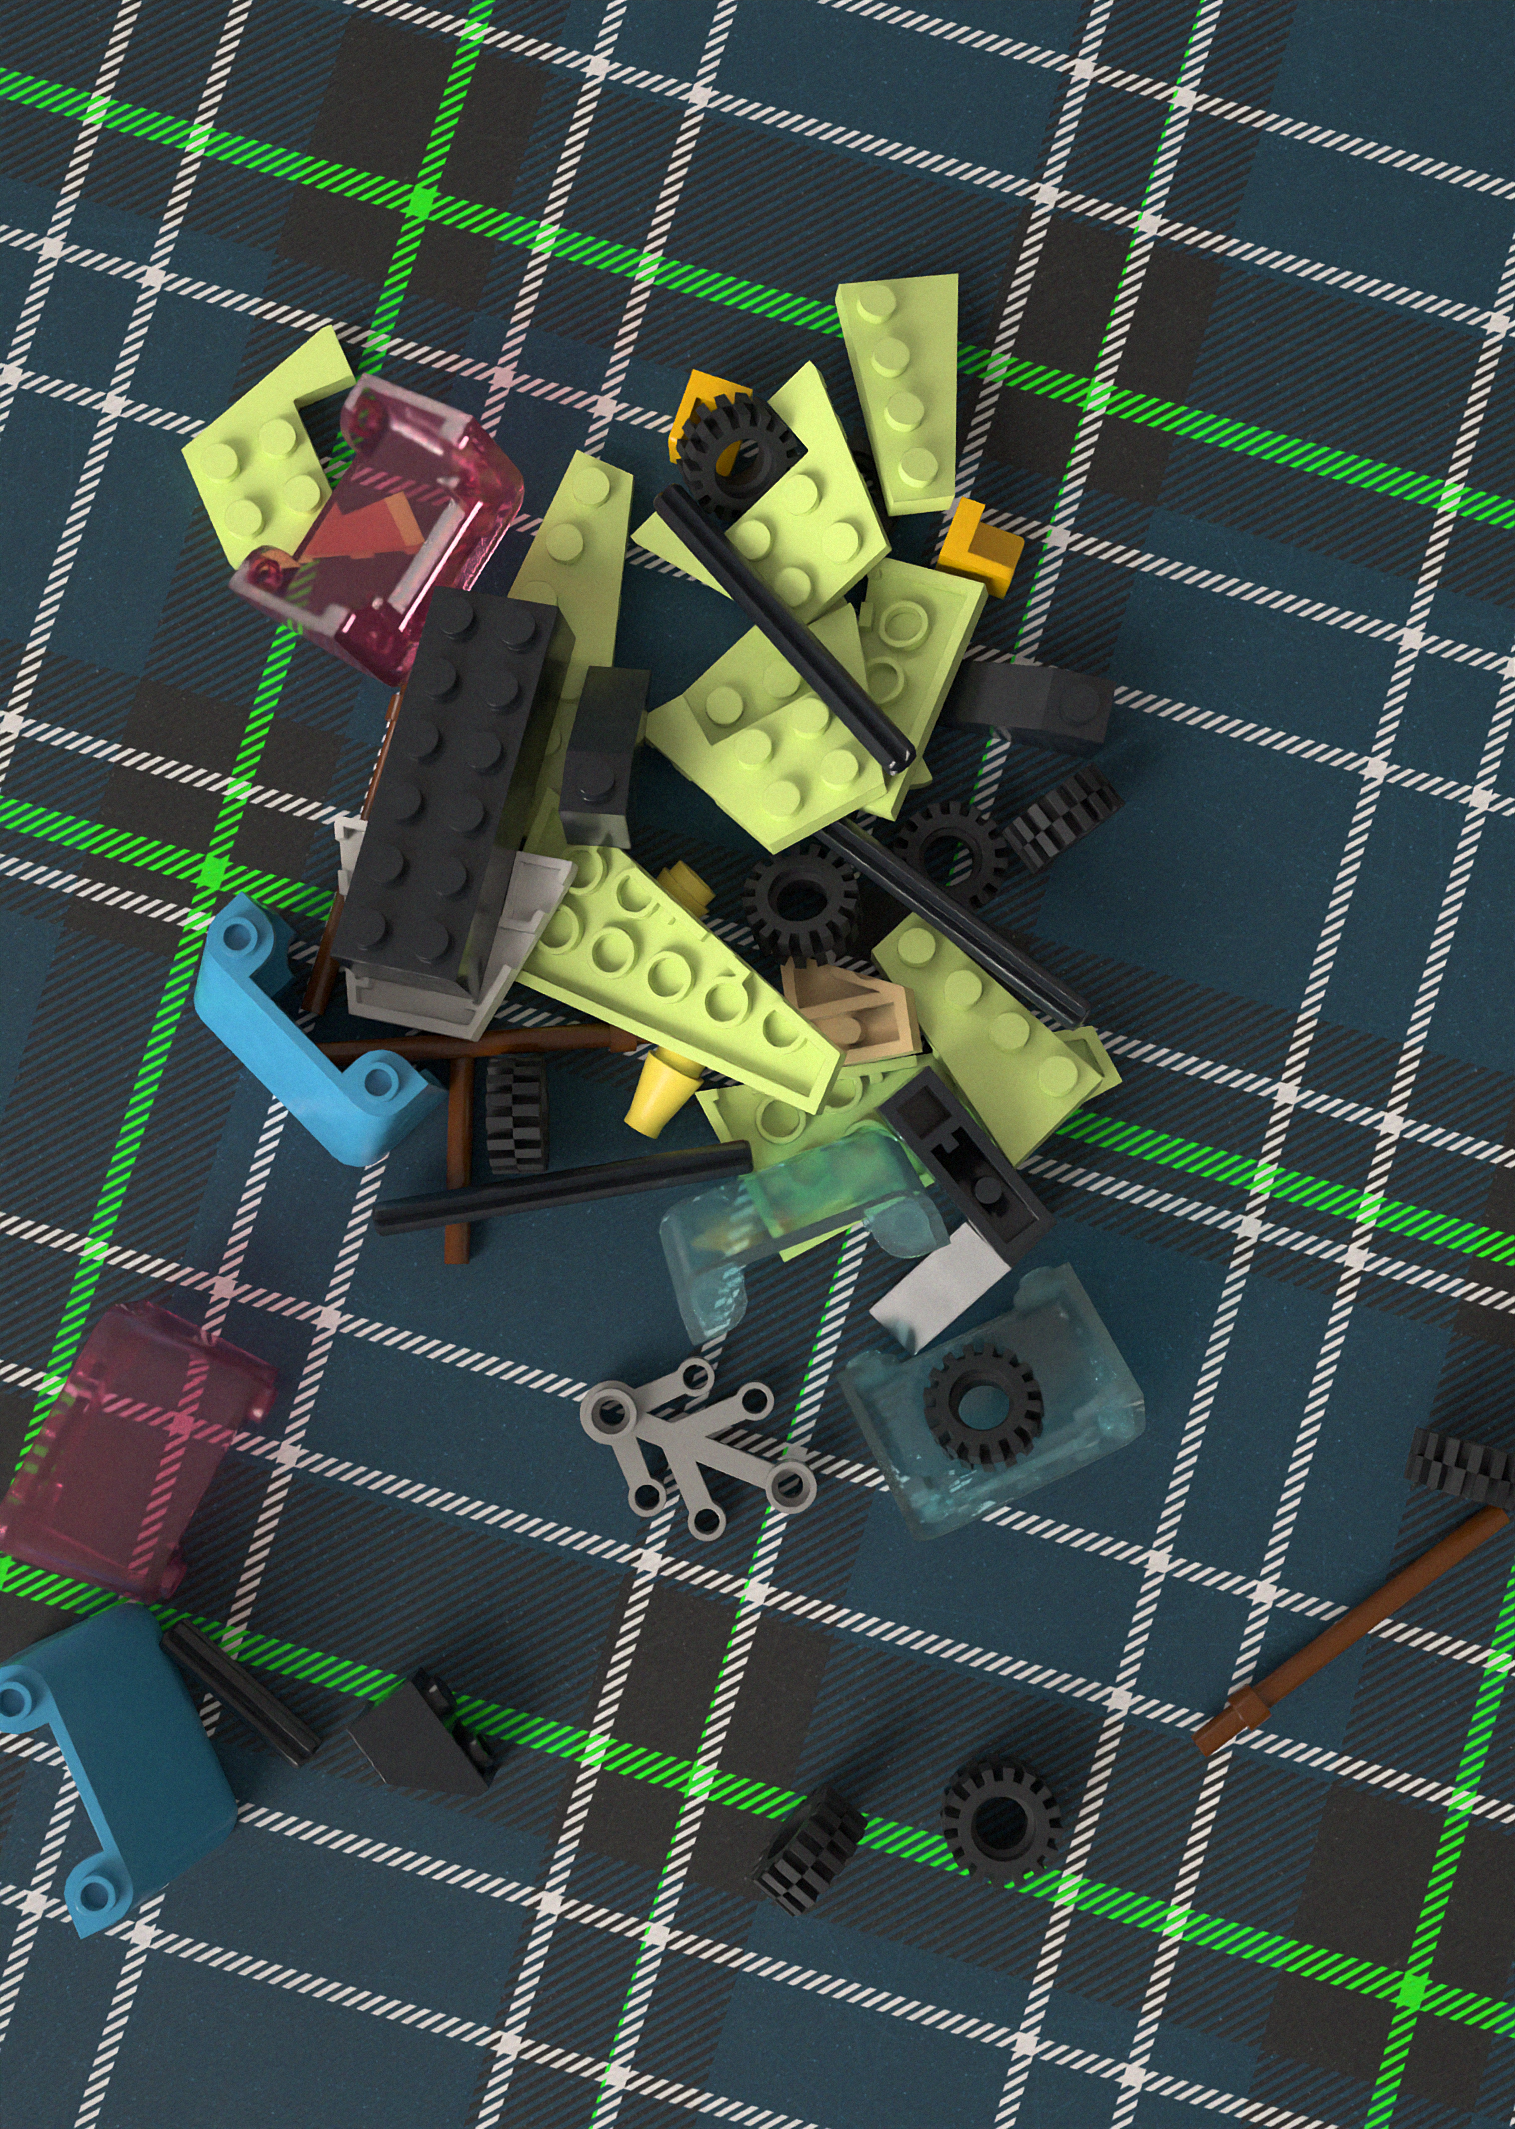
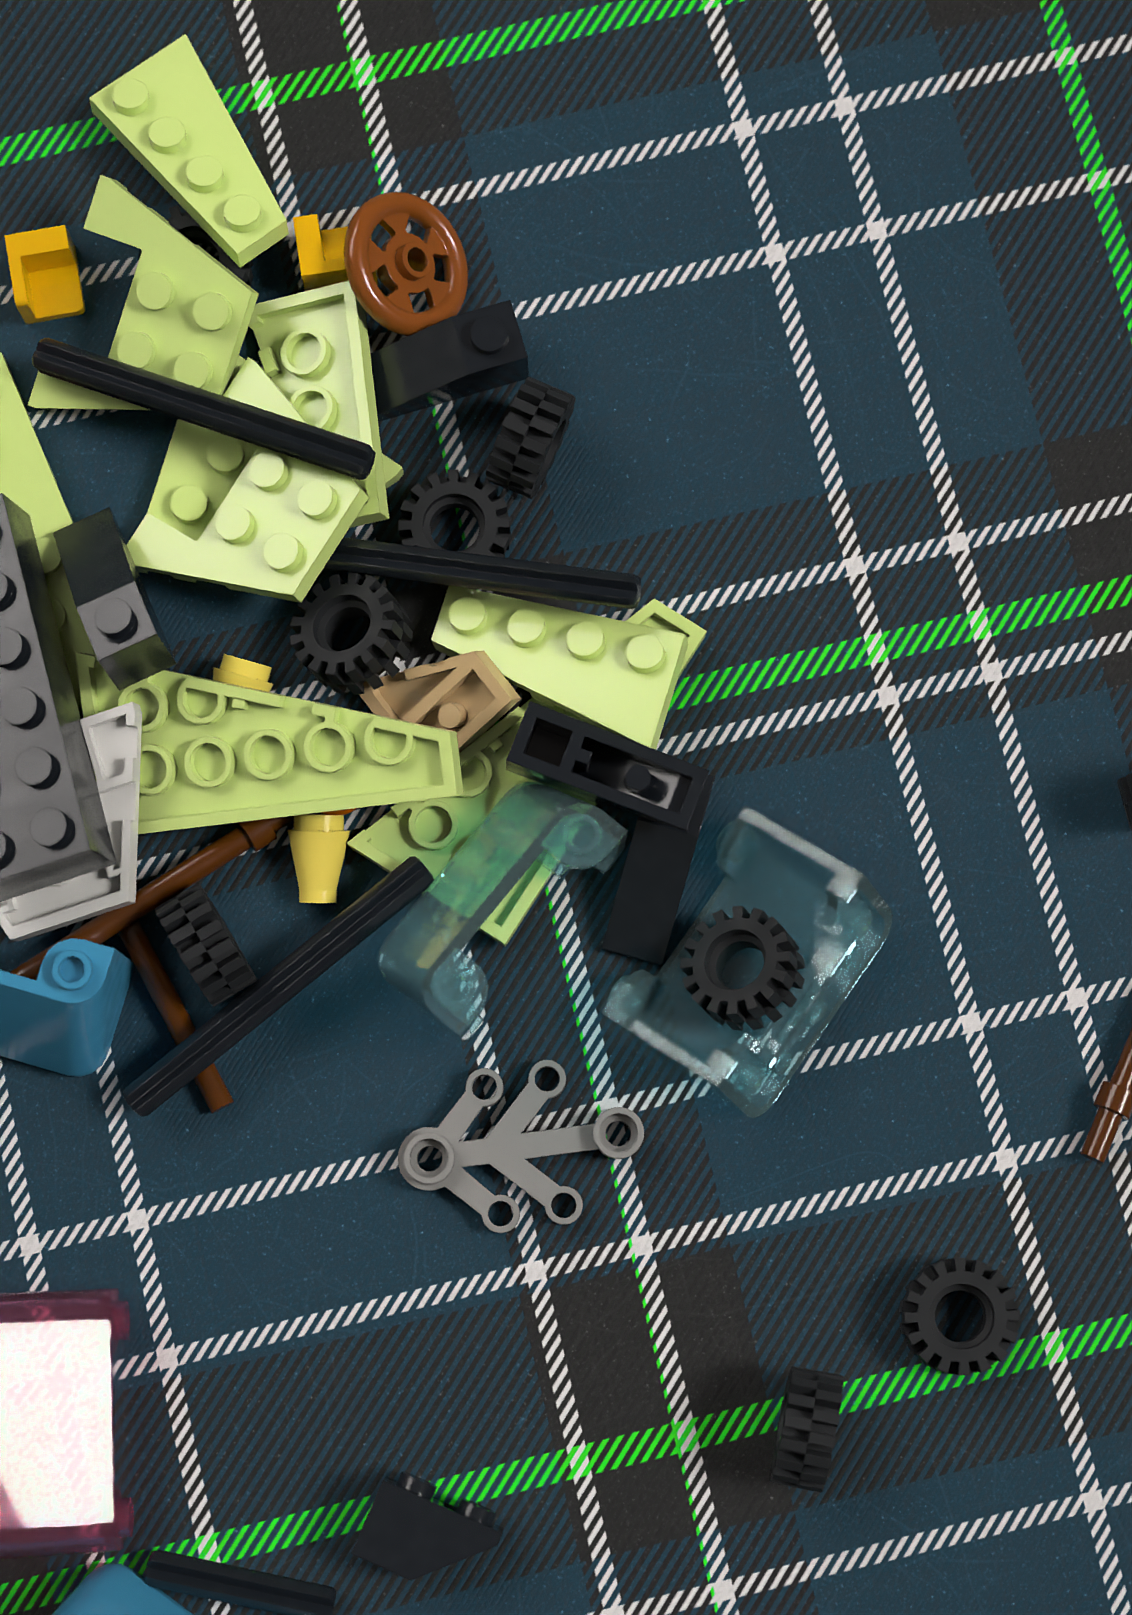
camera: 25 degrees left, 5 degrees down
(718, 431) = (54, 279): black tyre -> none
(1039, 593) = (392, 265): none -> dark orange plate

